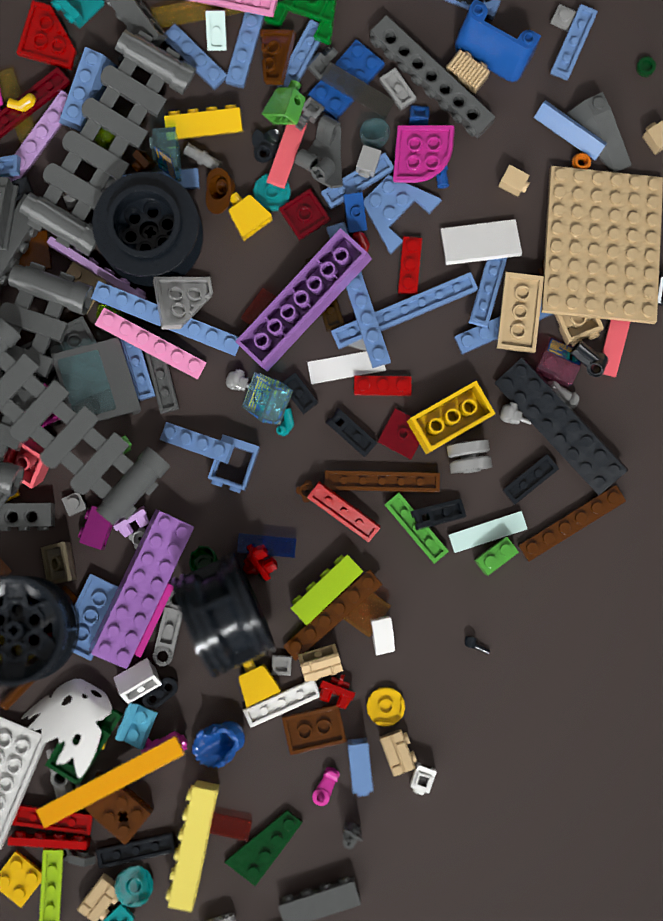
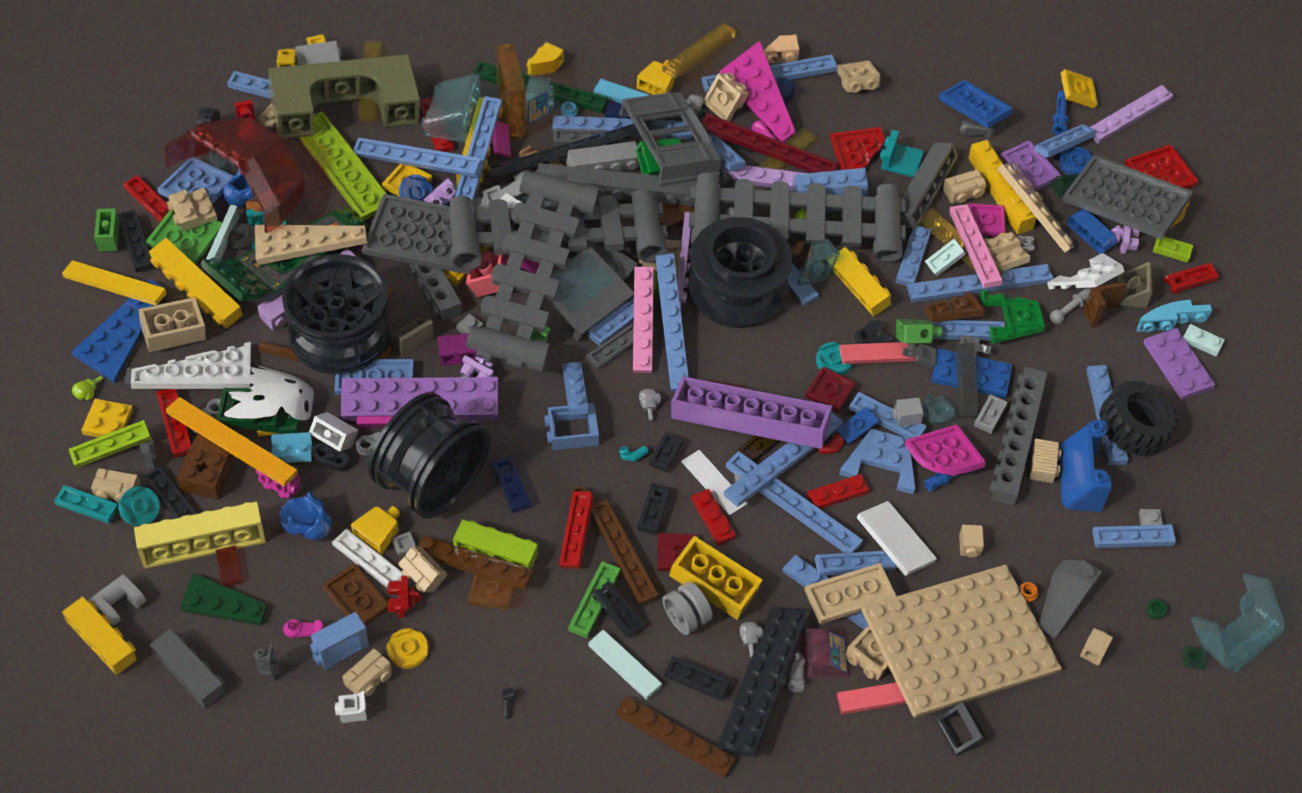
camera: 60 degrees right, 30 degrees down
(23, 104) = (790, 150): yellow arm -> none
(40, 839) = (152, 420): red plate -> none
(180, 298) = (696, 322): light grey plate -> none
(202, 157) = (830, 294): light grey pin -> none
(219, 190) = (811, 316): reddish brown piece -> none
(248, 215) = (800, 347): yellow torso -> none
(256, 564) = (491, 478): red hips -> none
(267, 399) = (646, 427): clear light blue slope -> none
(324, 155) = (888, 385): dark grey panel -> none
(383, 635) = (473, 611): white slope -> none
(419, 116) = (979, 441): blue slope -> none
(496, 556) = (604, 677): bright green brick -> none
(570, 130) = (1049, 567): medium blue tile -> none
(595, 362) = (841, 677): black piece -> none

